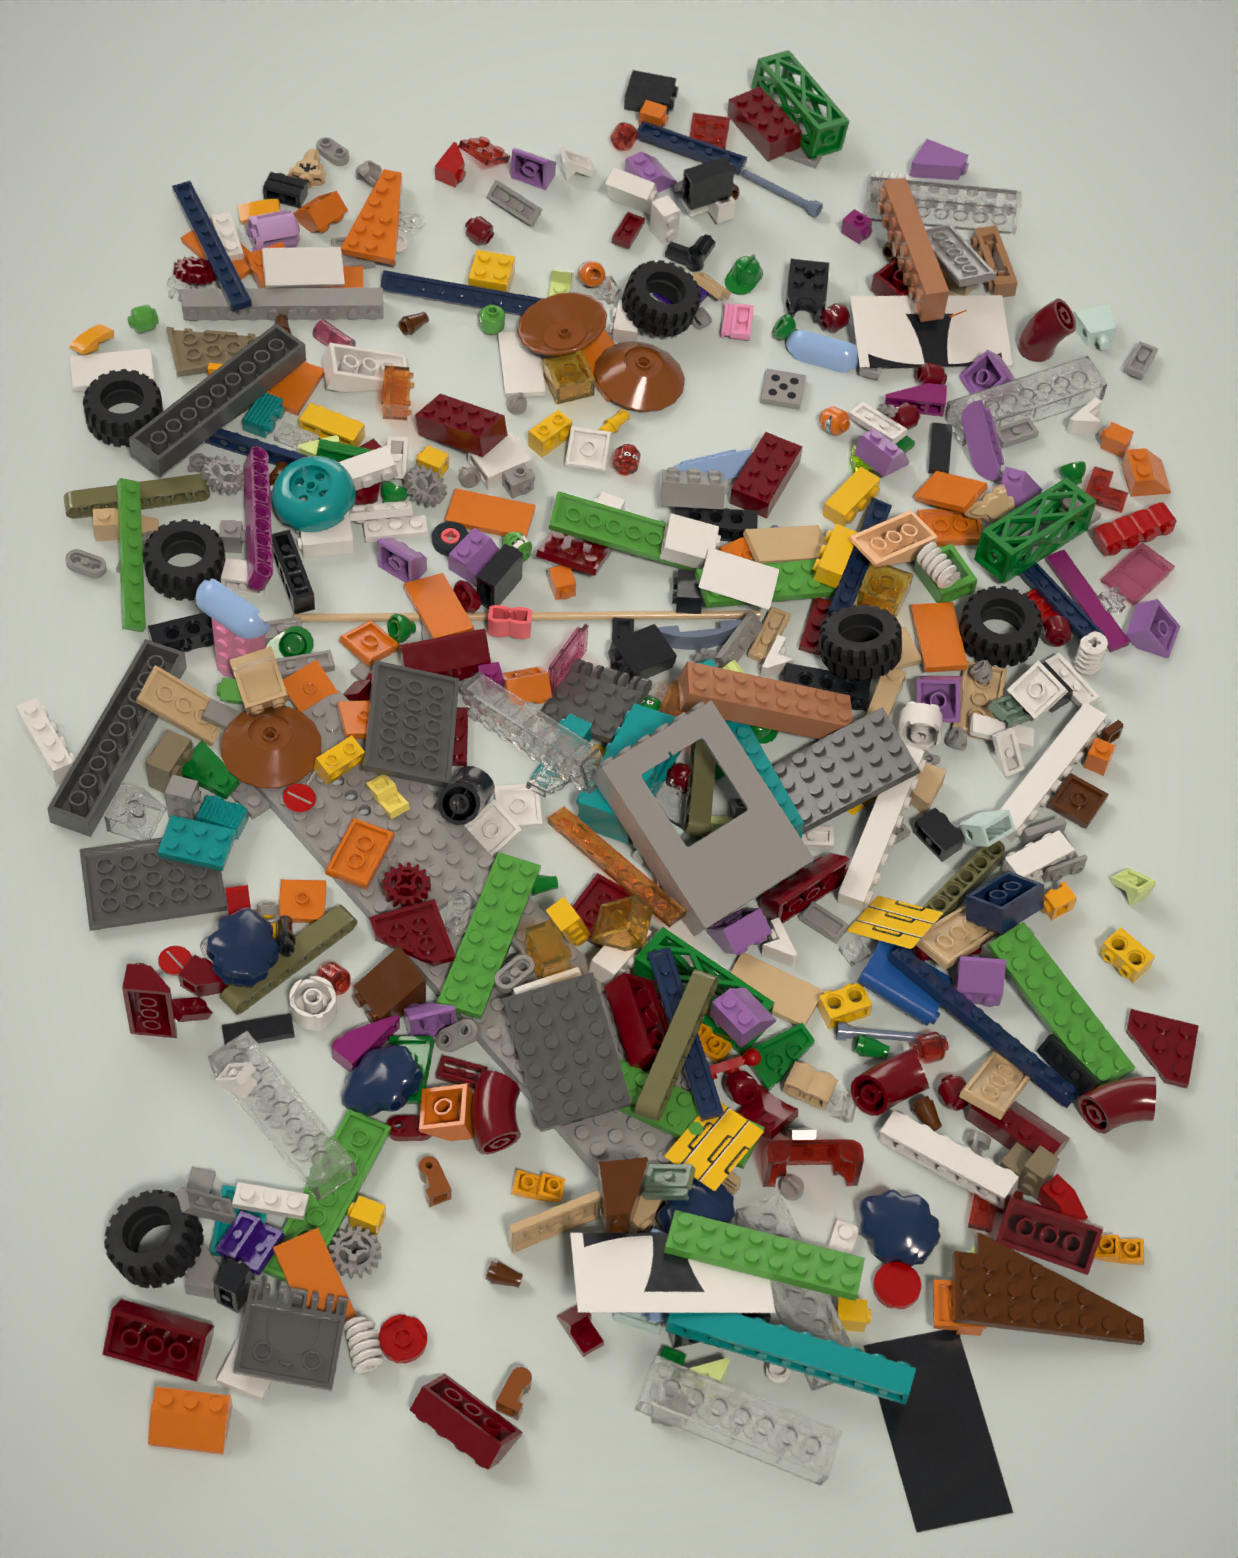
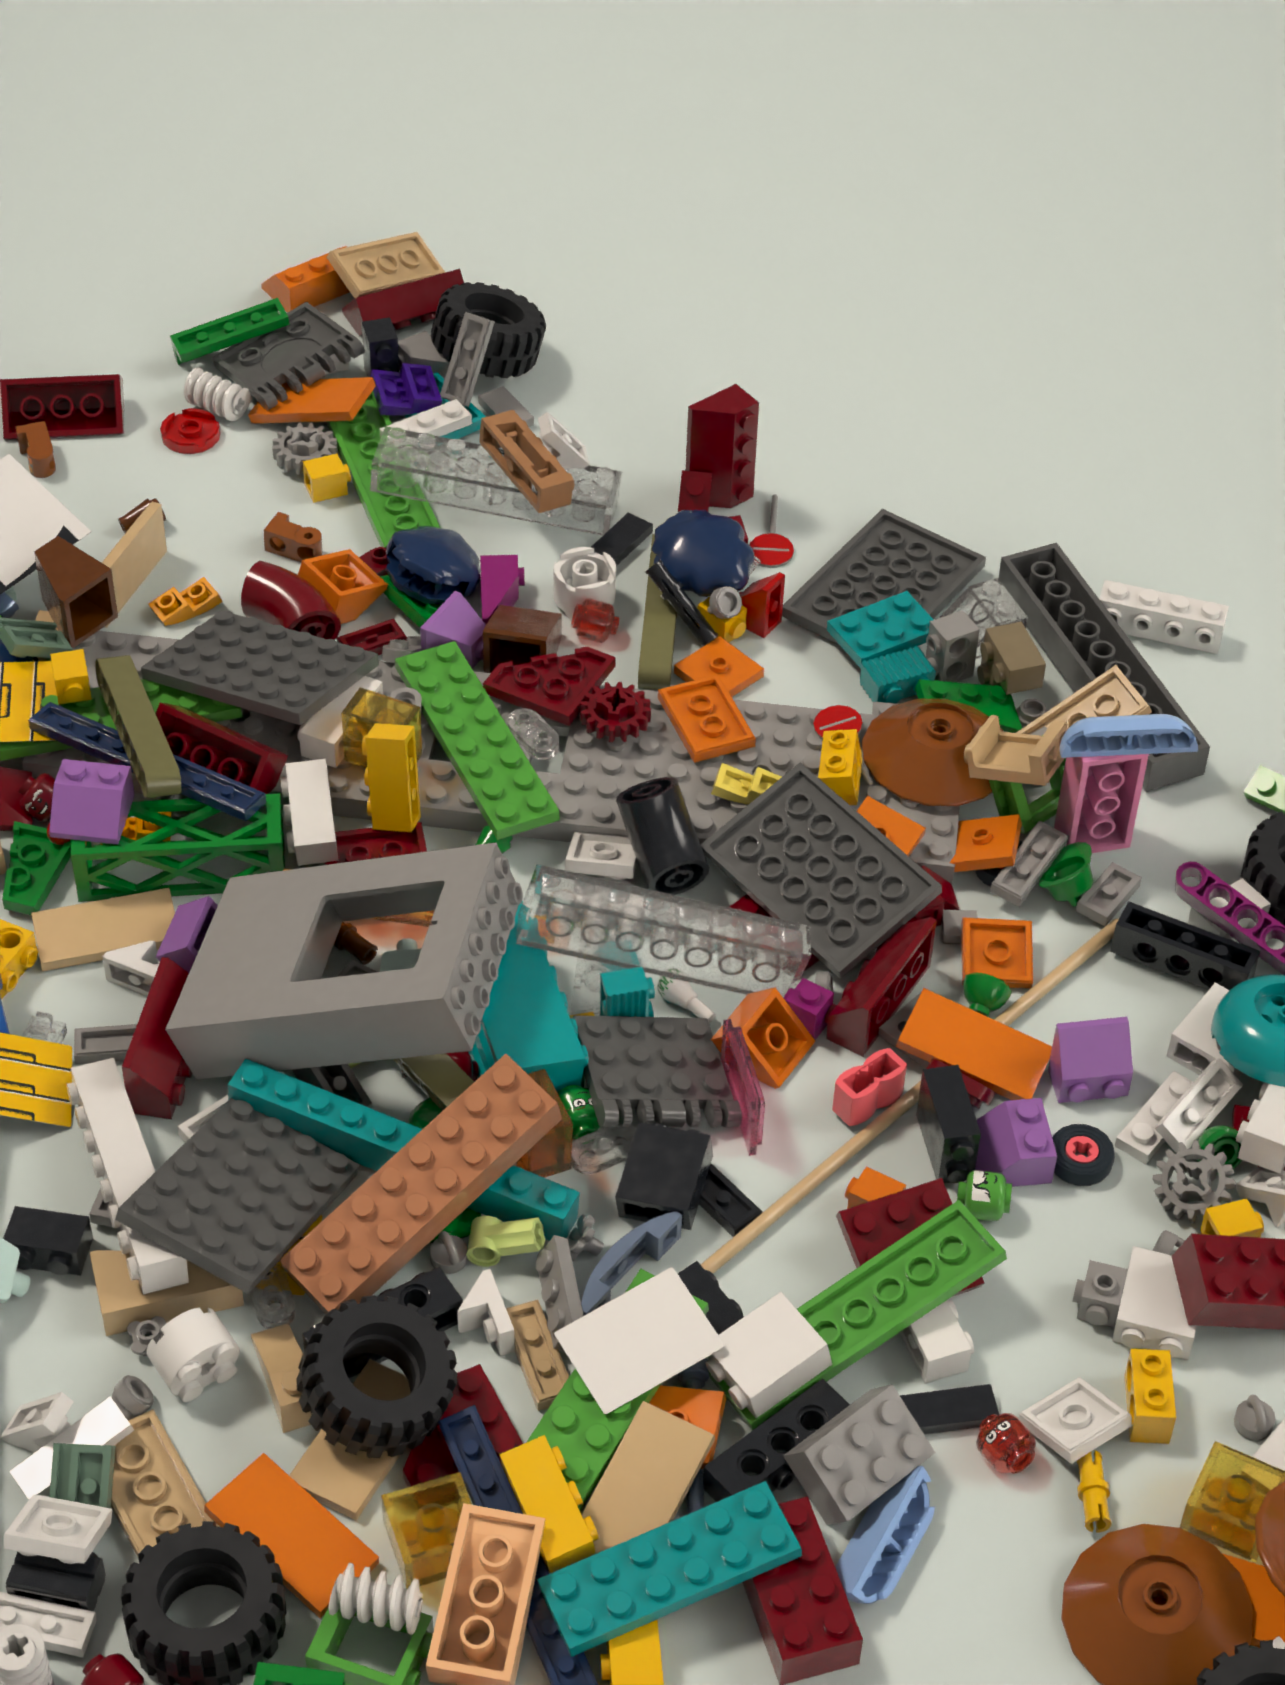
camera: 140 degrees right, 10 degrees down
(141, 1372) = (384, 263): none -> tan tile
(184, 633) = (1188, 818): black brick -> none
(258, 1109) = (526, 461): none -> medium nougat brick
(307, 1389) = (228, 330): none -> green fence
(490, 513) = (1078, 1229): orange tile -> none
(623, 923) = (324, 806): clear yellow slope -> none
(634, 496) = (951, 1408): none -> black tile
(677, 1122) = (70, 676): none -> yellow brick
(811, 498) = (669, 1568): none -> teal plate
(943, 692) = (207, 1427): medium lavender slope -> none
(980, 670) = (174, 1510): light grey tile -> none

